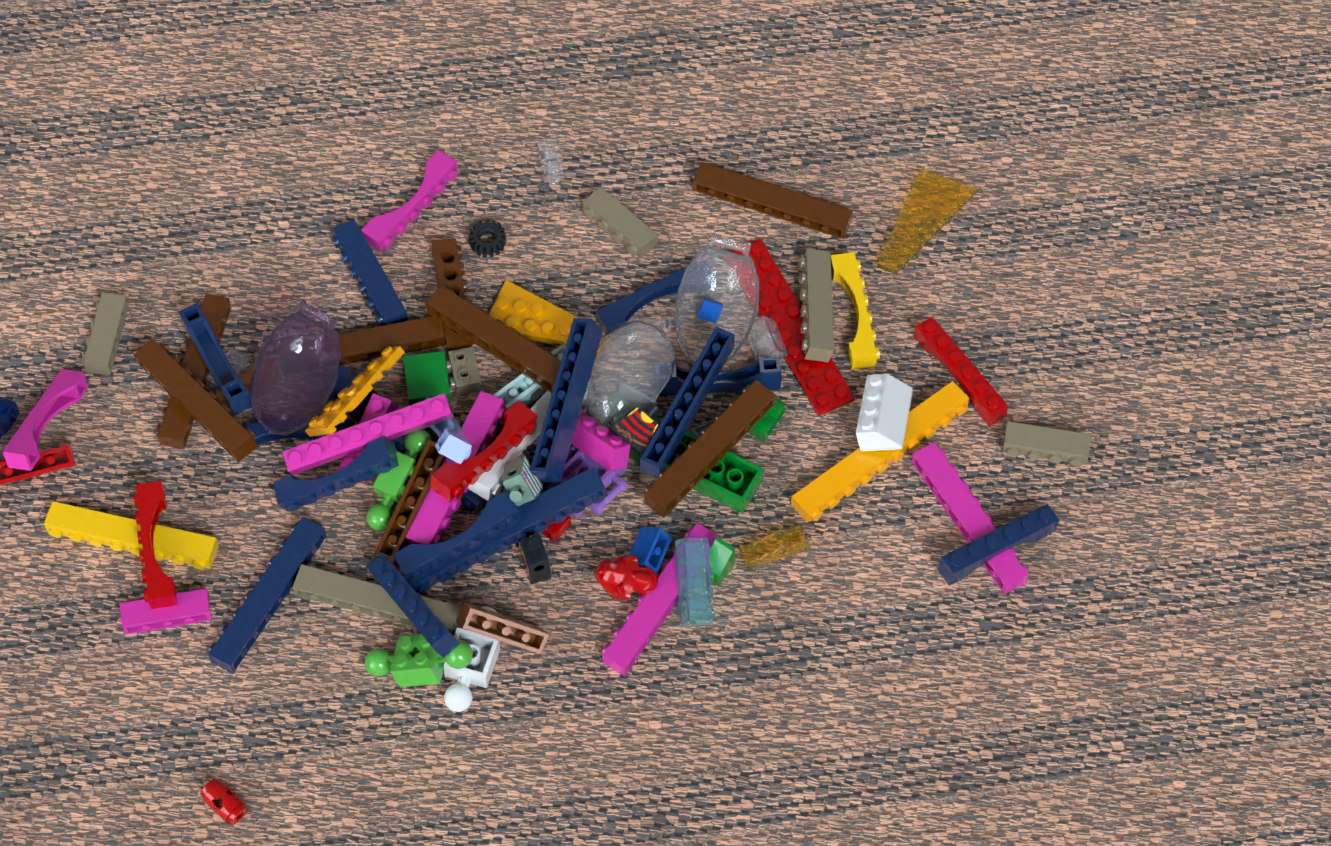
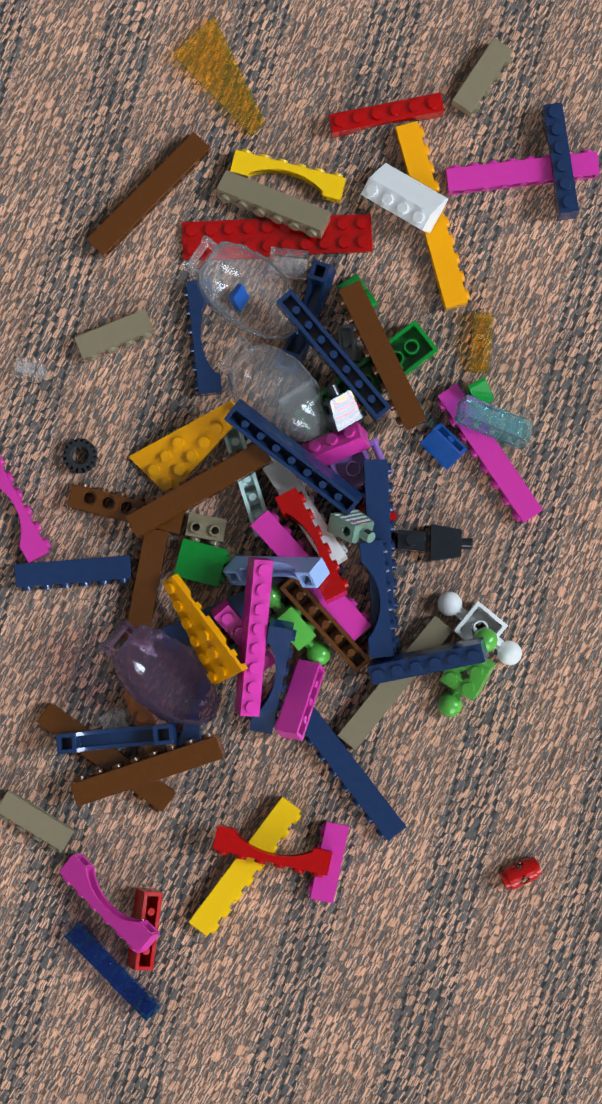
camera: 65 degrees left, 25 degrees up
(323, 513) = (299, 700): none -> dark pink brick
(502, 628) = (472, 594): dark orange brick -> none
(547, 594) = (447, 543): none -> black torso
(623, 576) = (464, 476): red head -> none

